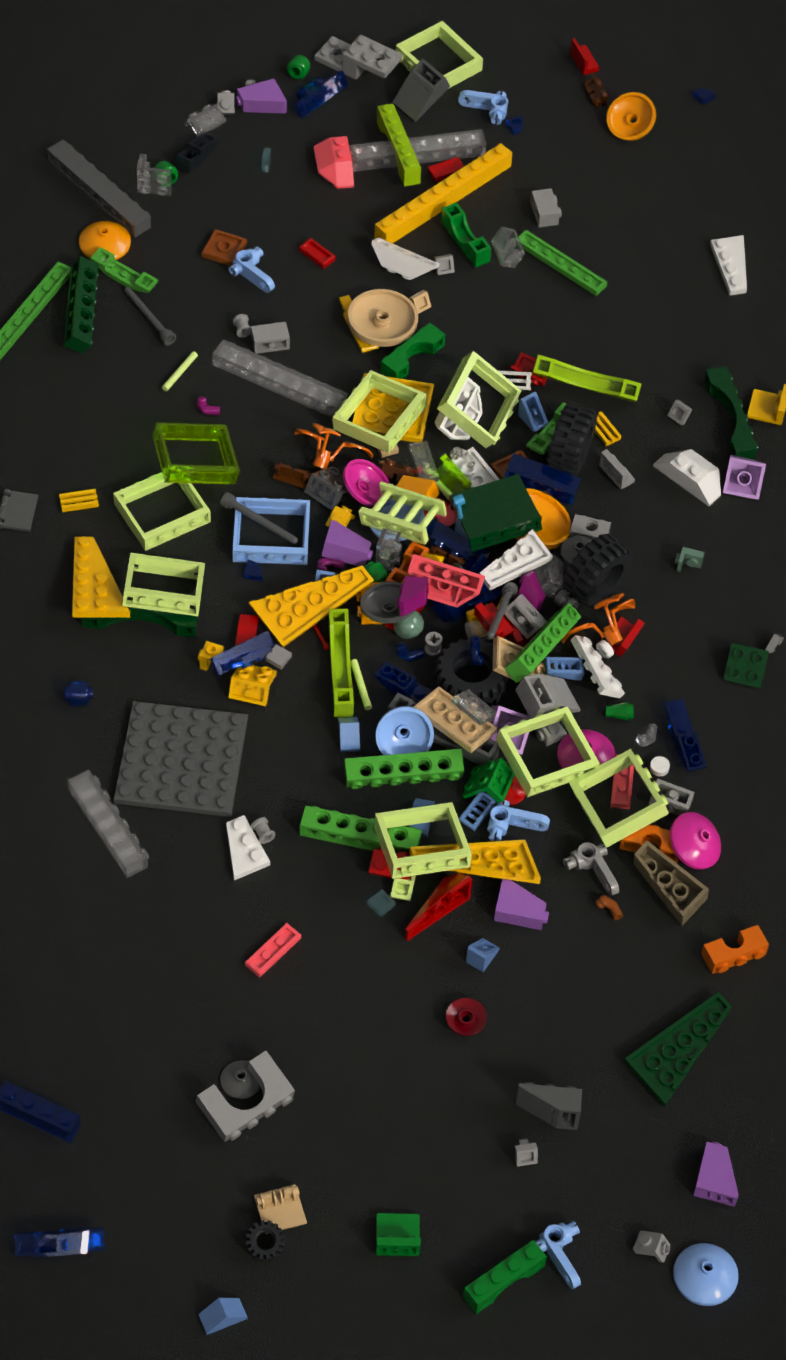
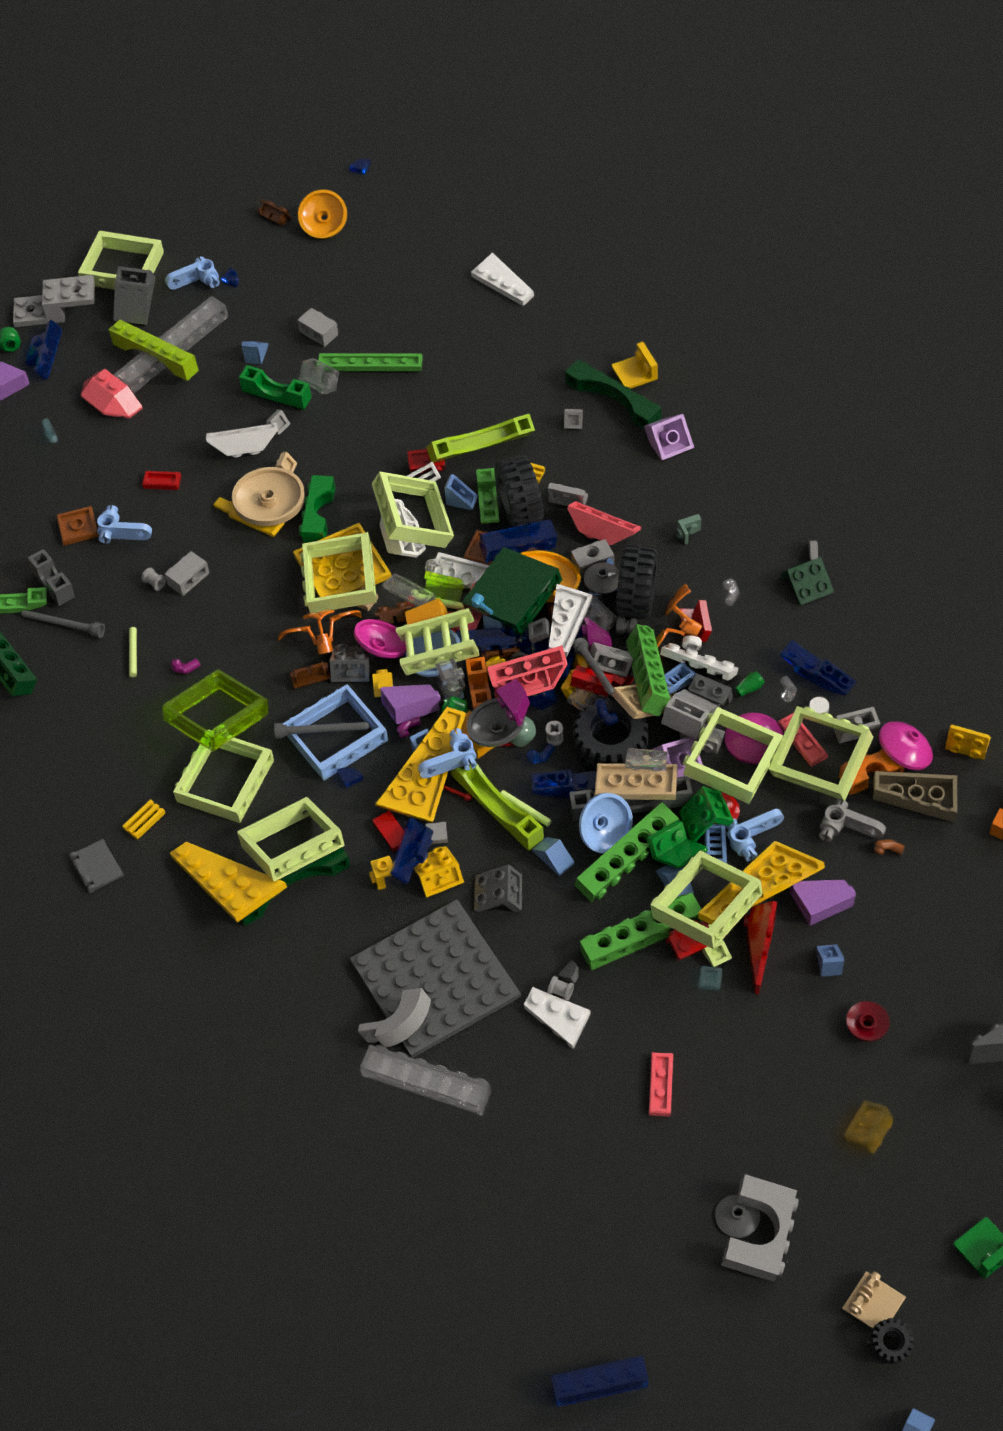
camera: 30 degrees left, 0 degrees up
(78, 693) = (297, 985): clear blue head -> none
(125, 770) = (402, 1023): none -> light grey arch
(167, 274) = (56, 583): none -> dark grey arch
(278, 378) = (226, 602): clear brick -> none
(279, 824) = (569, 972): none -> dark grey tile
(287, 728) = (498, 888): none -> dark grey bracket
(331, 607) = (452, 759): none -> light blue piece
(395, 1090) = (869, 1125): none -> clear yellow bracket
(441, 786) = (672, 846): none -> green bracket
(444, 194) = (226, 368): yellow brick -> none
(445, 169) = (208, 346): red tile -> none
(478, 195) = (254, 351): none -> medium blue slope
(485, 555) = (539, 630): none -> dark grey tile
(582, 694) = (711, 690): none -> dark grey bracket
(583, 58) = (239, 193): red panel -> none
(620, 508) = (599, 524): none -> coral wedge
(678, 633) = (733, 590): none -> clear arm
(692, 474) = (626, 460): white wedge -> none
(750, 873) = (967, 742): none -> yellow bracket

